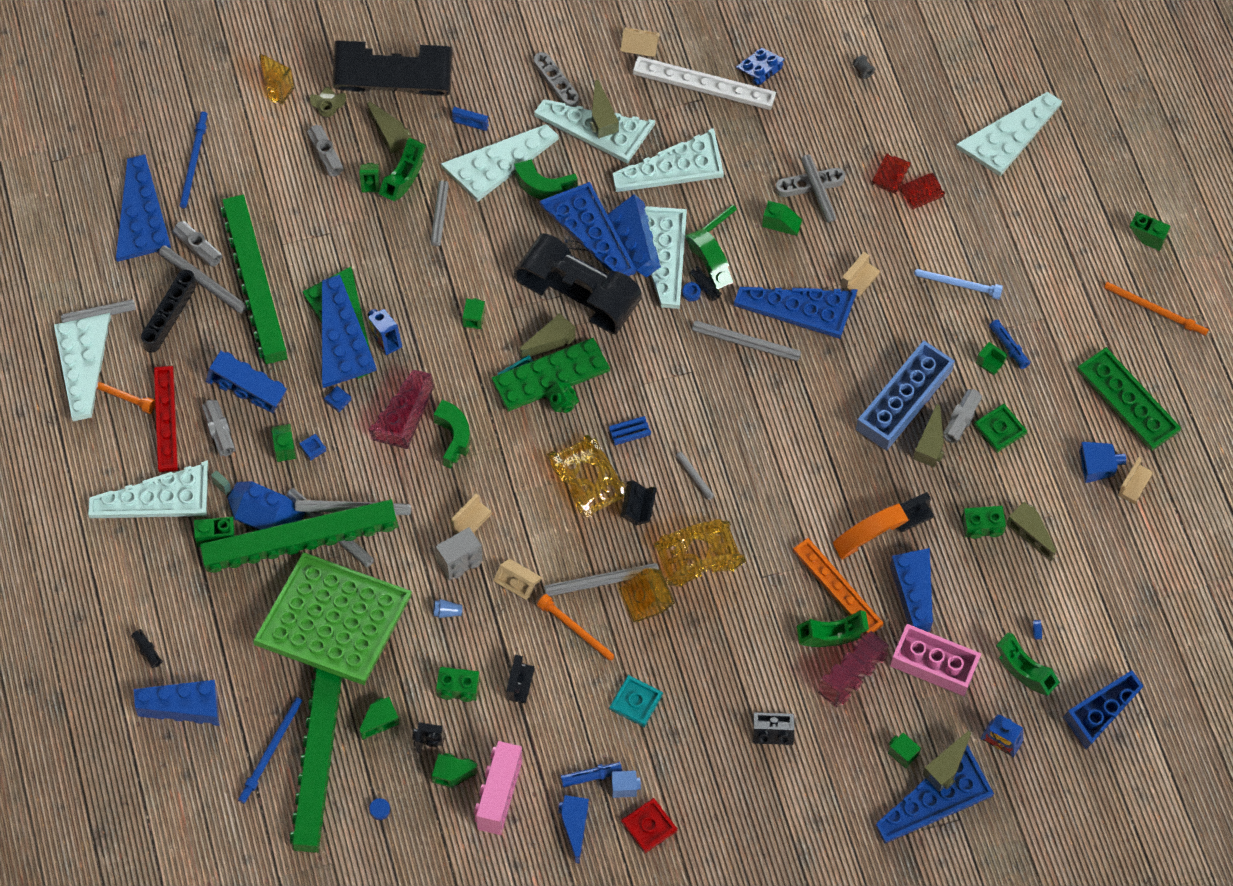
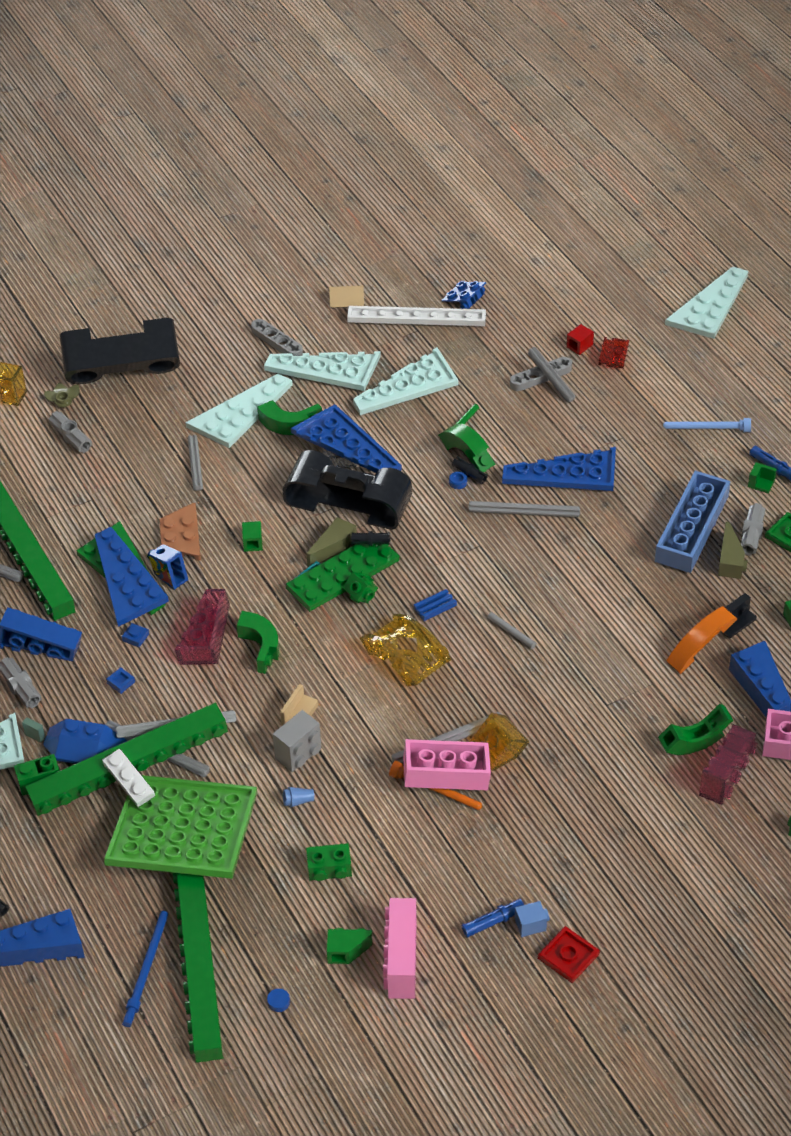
camera: 10 degrees left, 15 degrees down
(283, 442) = (90, 683): green slope -> none
(294, 559) = (128, 777): none -> white plate
(369, 177) = (120, 445): green slope -> none
(379, 718) = (255, 911): green slope -> none
(389, 128) = (127, 403): olive slope -> none
(405, 173) = (154, 432): green arch -> none
(407, 292) = (180, 531): none -> nougat wing
(428, 733) = (312, 914): black bracket -> none
(470, 118) = (207, 382): blue tile -> none
(516, 578) = (361, 755): tan panel -> none
(519, 680) = (392, 845): black bracket -> none
(573, 818) = (489, 967): blue slope -> none
(585, 346) = (370, 538): none -> black pin
(589, 612) = (446, 764): none -> bright pink brick
(603, 117) = (332, 355): olive slope -> none
(634, 232) = (389, 436): blue wedge -> none
(636, 701) = (517, 841): teal tile -> none
(638, 503) = (464, 663): black bracket -> none
(669, 237) = (420, 447): light aqua wing -> none
(684, 573) = (547, 670): clear yellow fence -> none
(773, 728) = (667, 835): black bracket -> none
(781, 218) = (524, 405): green slope -> none
(835, 583) = (678, 691): orange plate -> none
(860, 275) = (613, 436): tan panel -> none
(861, 149) = (580, 339): none -> red brick
(864, 66) = (559, 277): dark grey bush -> none
(922, 191) = (647, 361): clear red plate -> none

